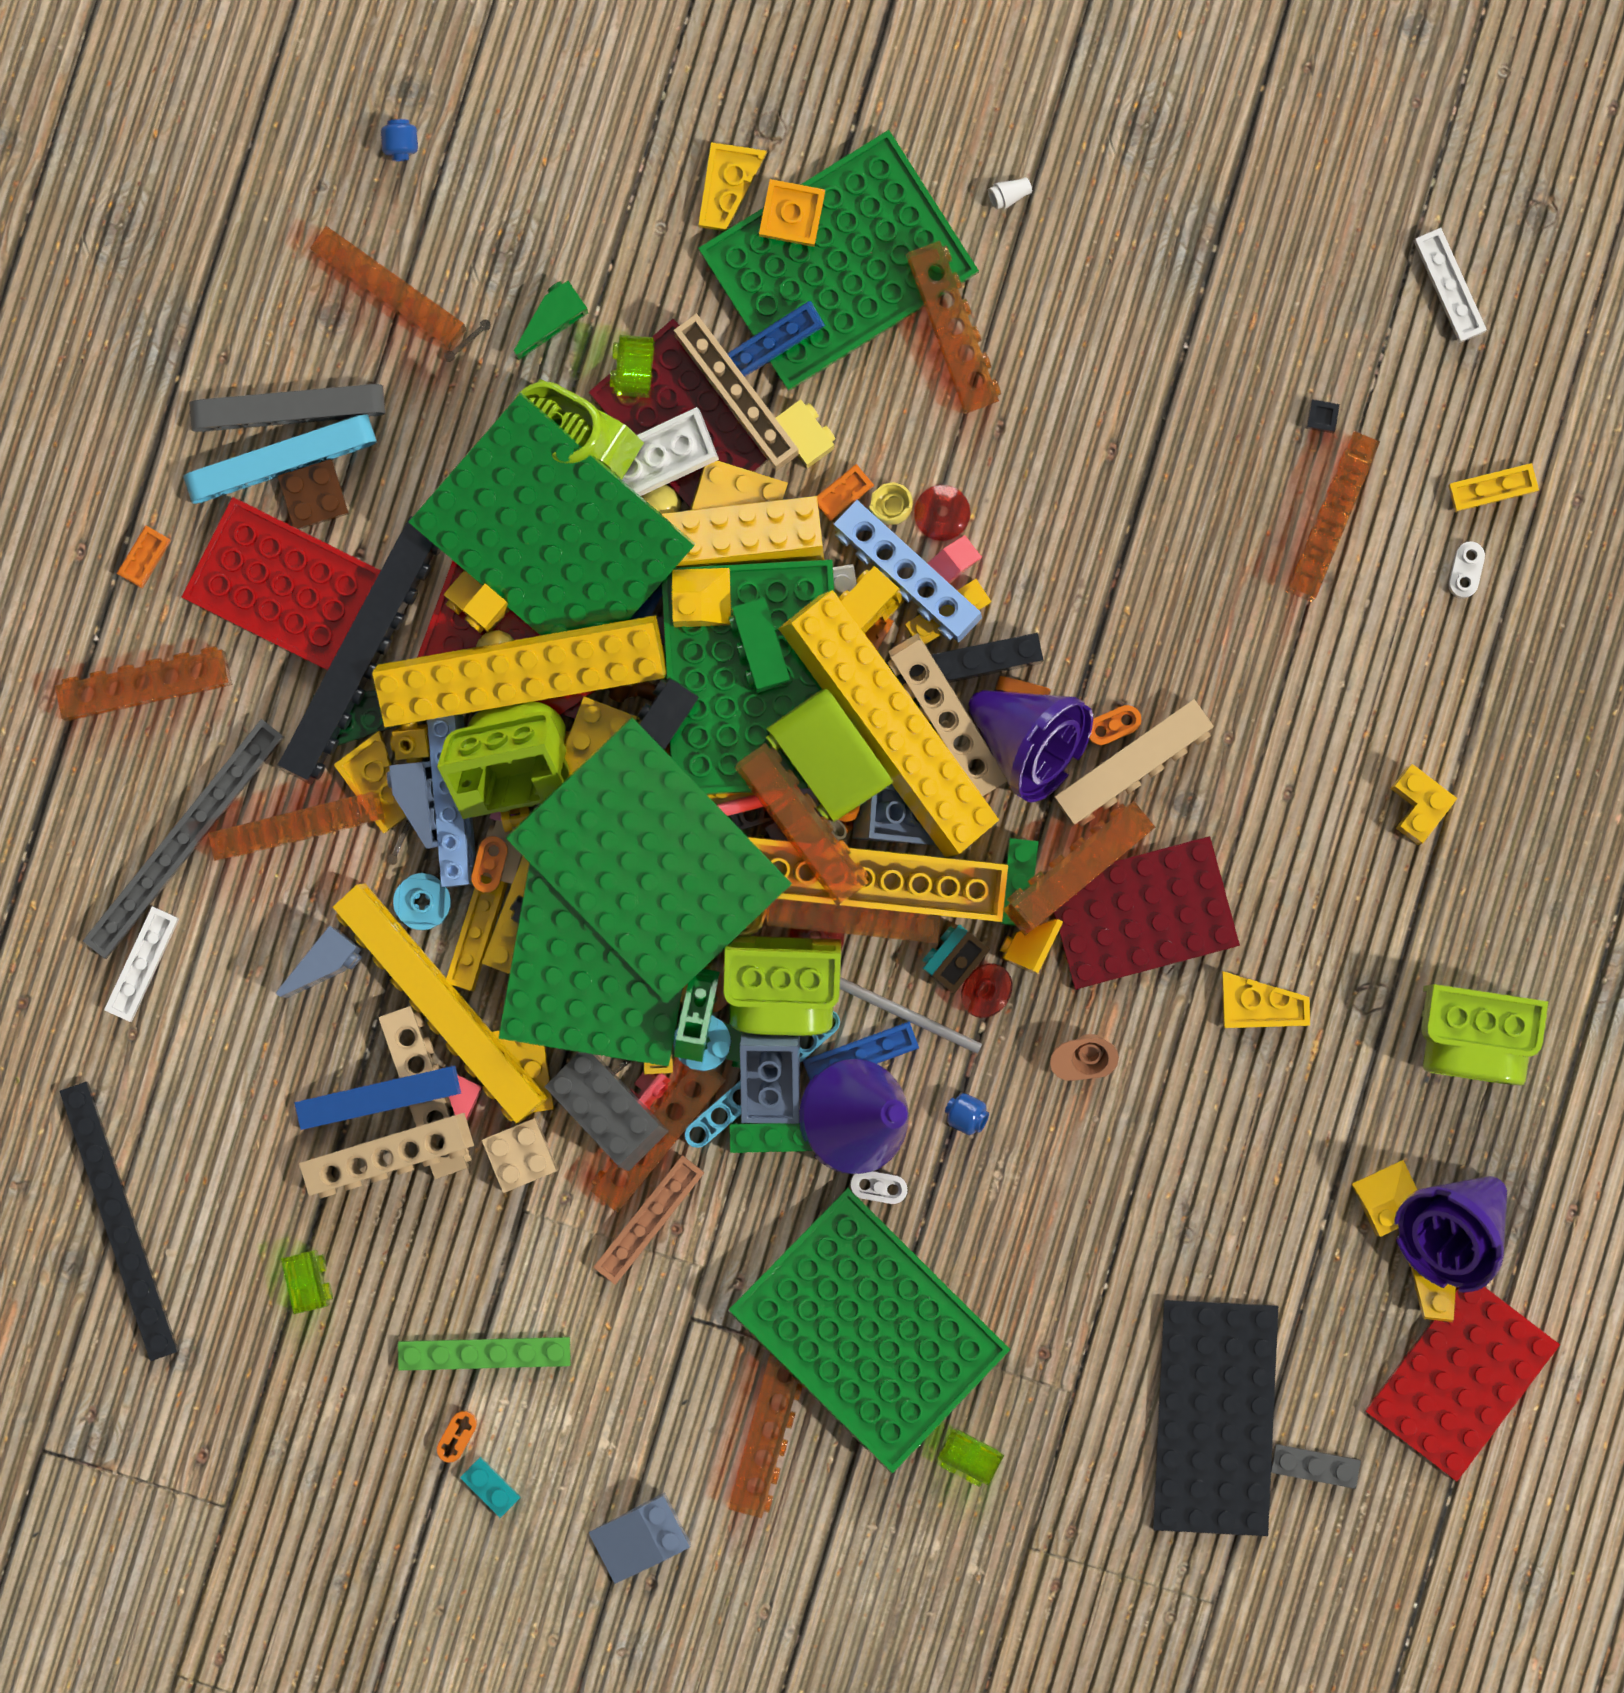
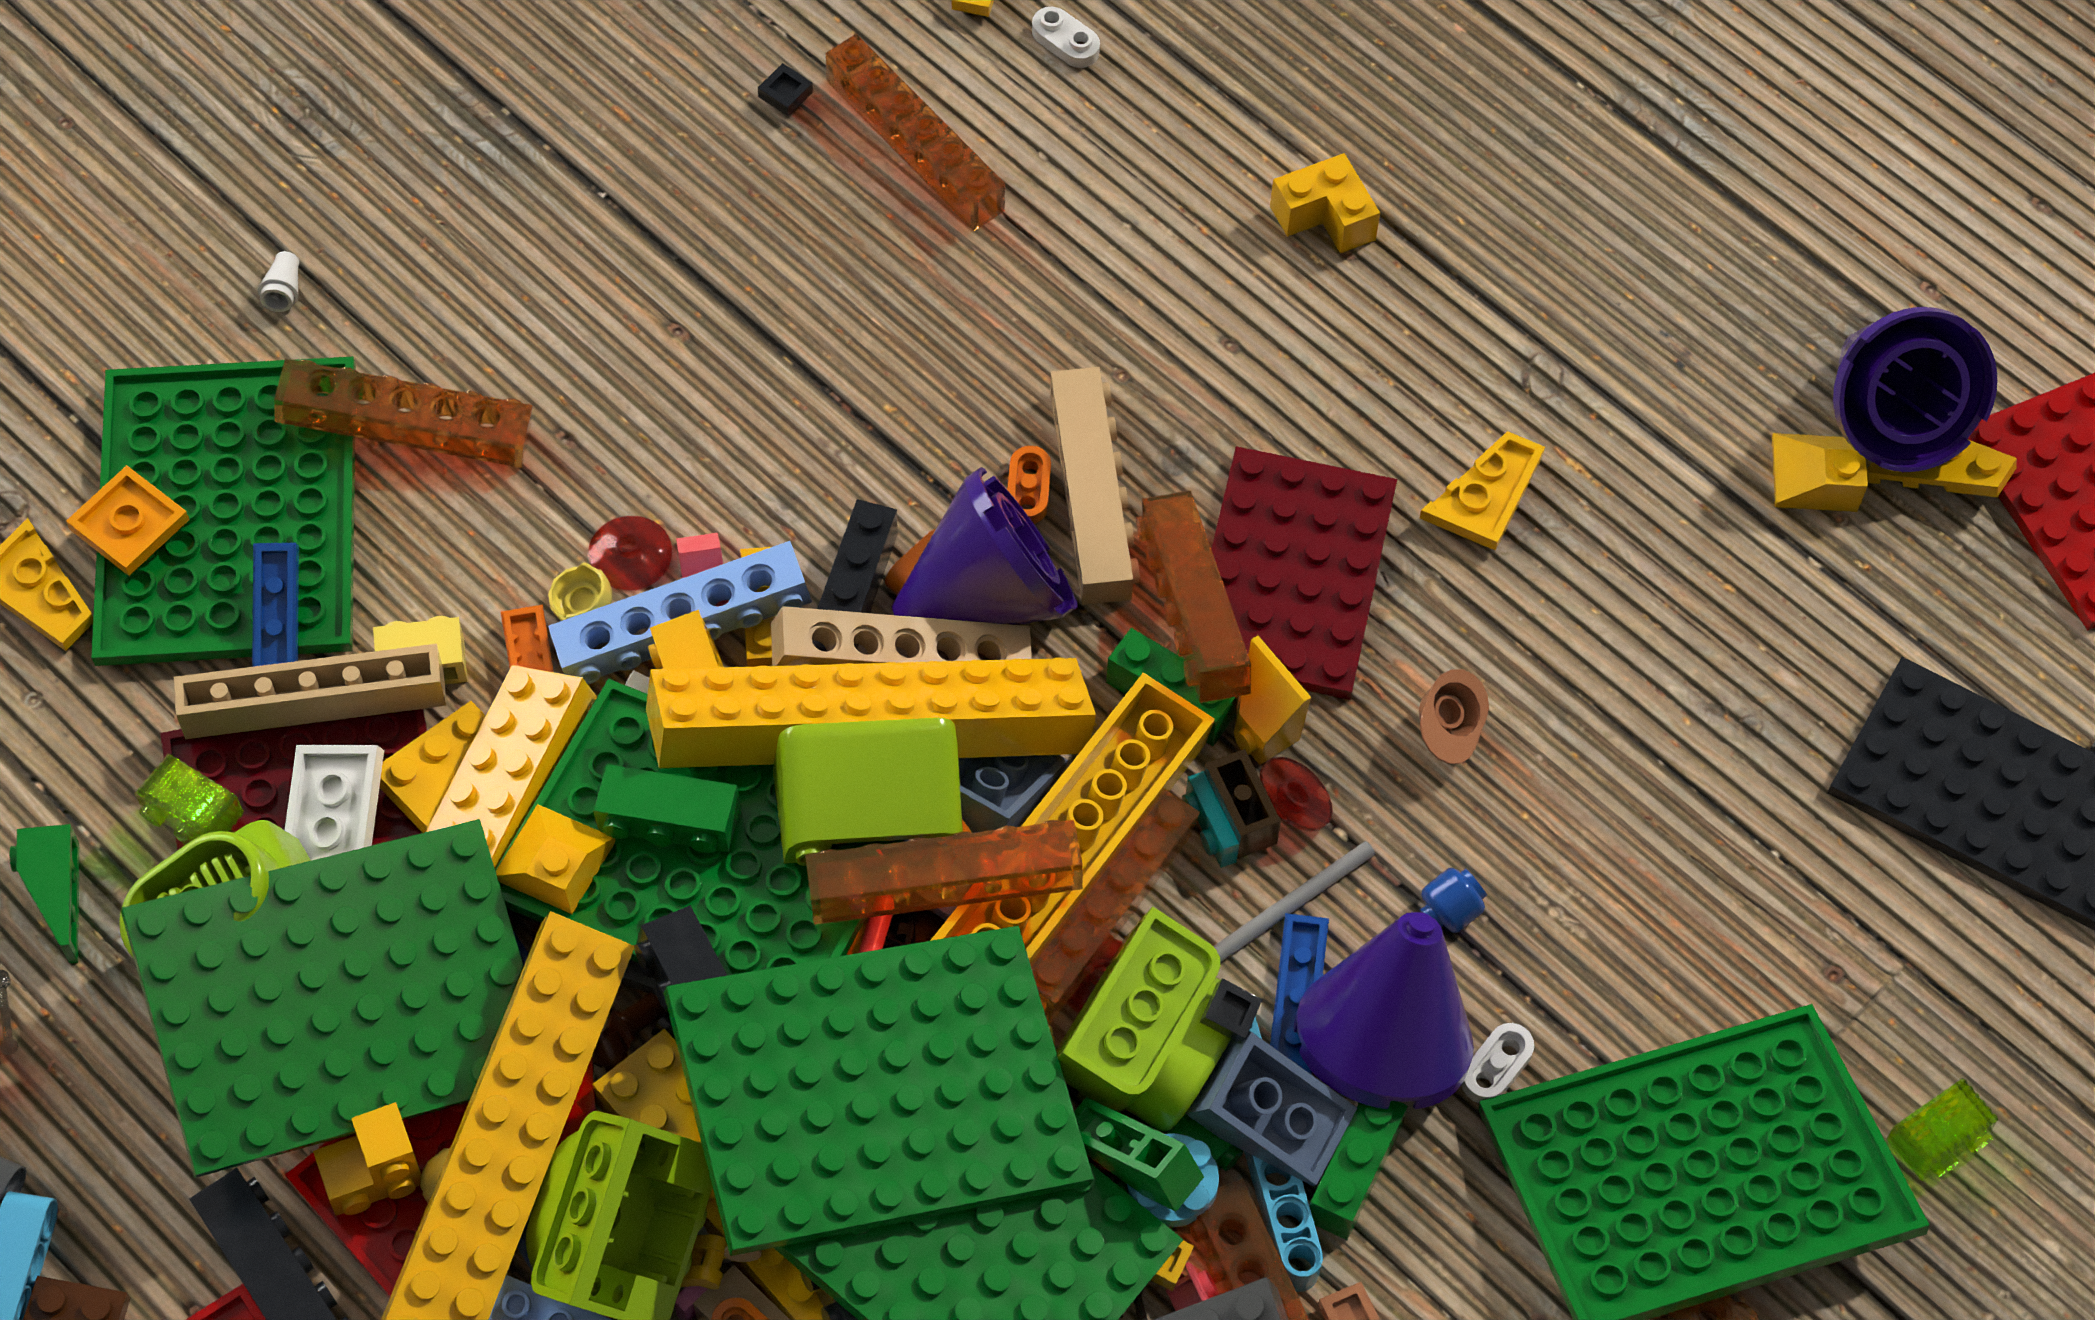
camera: 65 degrees left, 25 degrees down
(803, 1029) = (1231, 1010): none -> black plate
(1481, 1034) = (1657, 254): lime brick -> none

